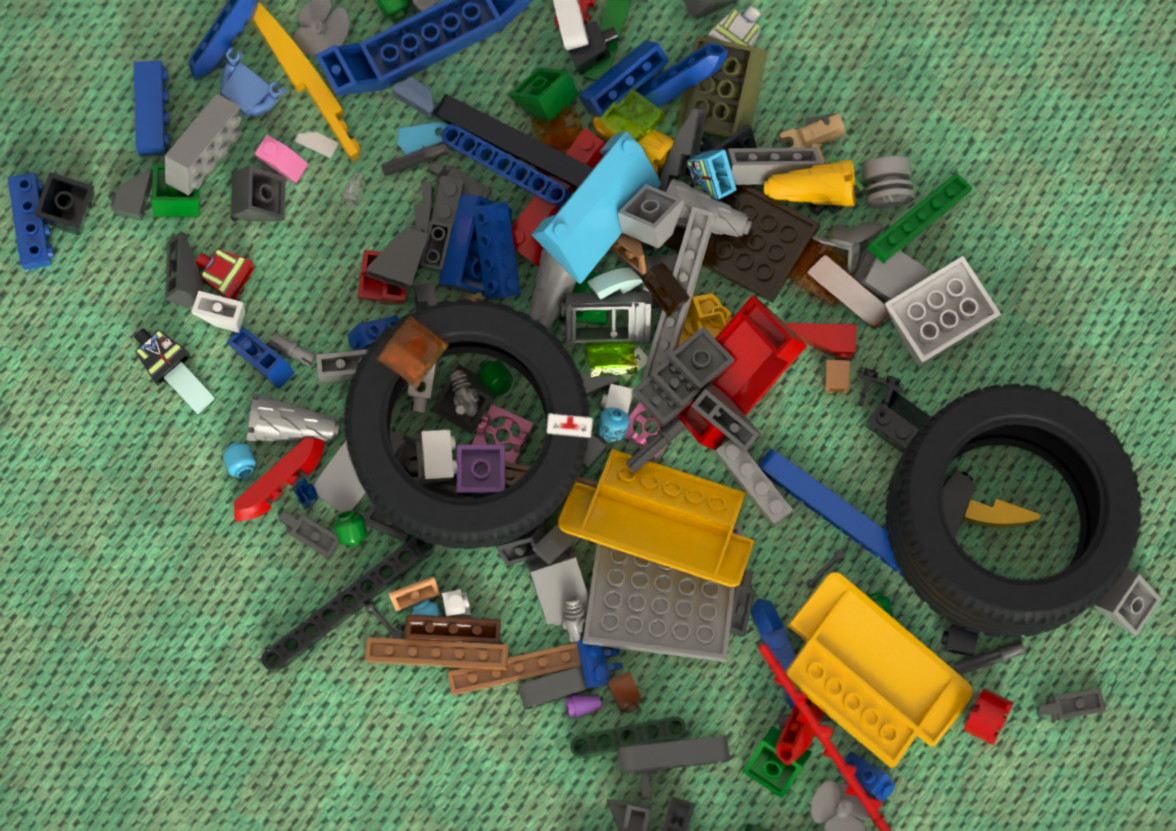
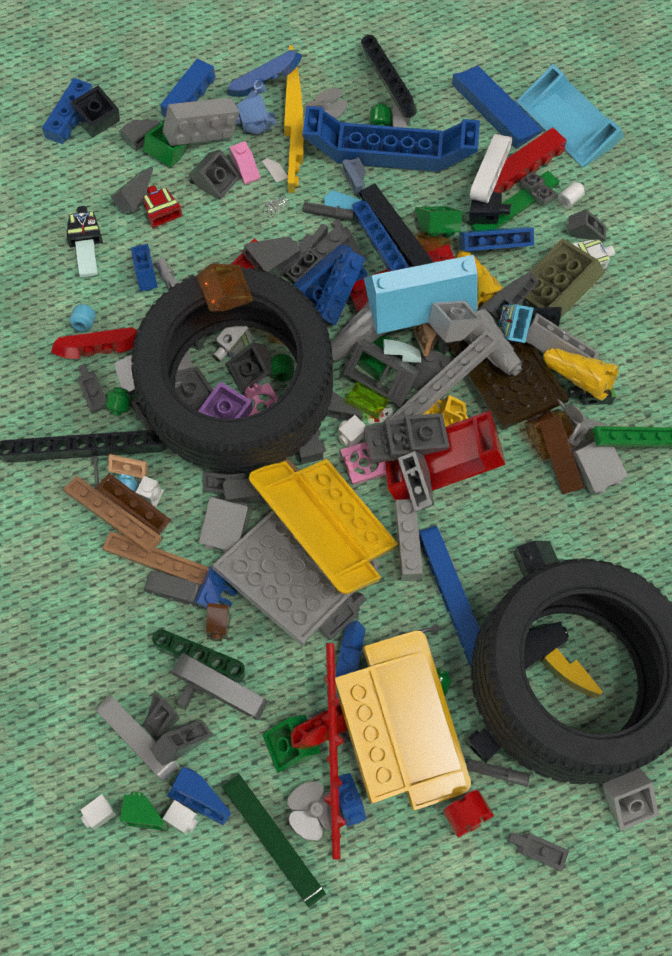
camera: 30 degrees right, 10 degrees down
(219, 311) = (138, 223): white slope -> none
(282, 422) = (121, 305): light grey cone -> none
(305, 493) = (108, 362): clear blue plate -> none
(435, 456) = (200, 380): white slope -> none
(465, 397) = (250, 358): light grey piece -> none
(569, 425) = (297, 402): white sticker -> none
(575, 618) = (219, 548): light grey piece -> none
(581, 704) = (183, 612): medium lavender cone -> none
(613, 426) = (337, 441): medium azure head -> none
(633, 115) = (488, 261): clear neon green slope -> none
(655, 445) = (357, 472): dark grey axle -> none
(665, 288) = (433, 374): dark brown slope -> none
(684, 74) = (553, 254): blue brick -> none
(815, 132) = (605, 345): tan piece -> none
(831, 339) = (526, 479): red slope -> none
(837, 376) = (515, 506): medium nougat panel -> none
(872, 376) = (549, 531): black plate -> none
(888, 182) = (635, 402): light grey wheel -> none
(941, 311) = (619, 508): white slope -> none

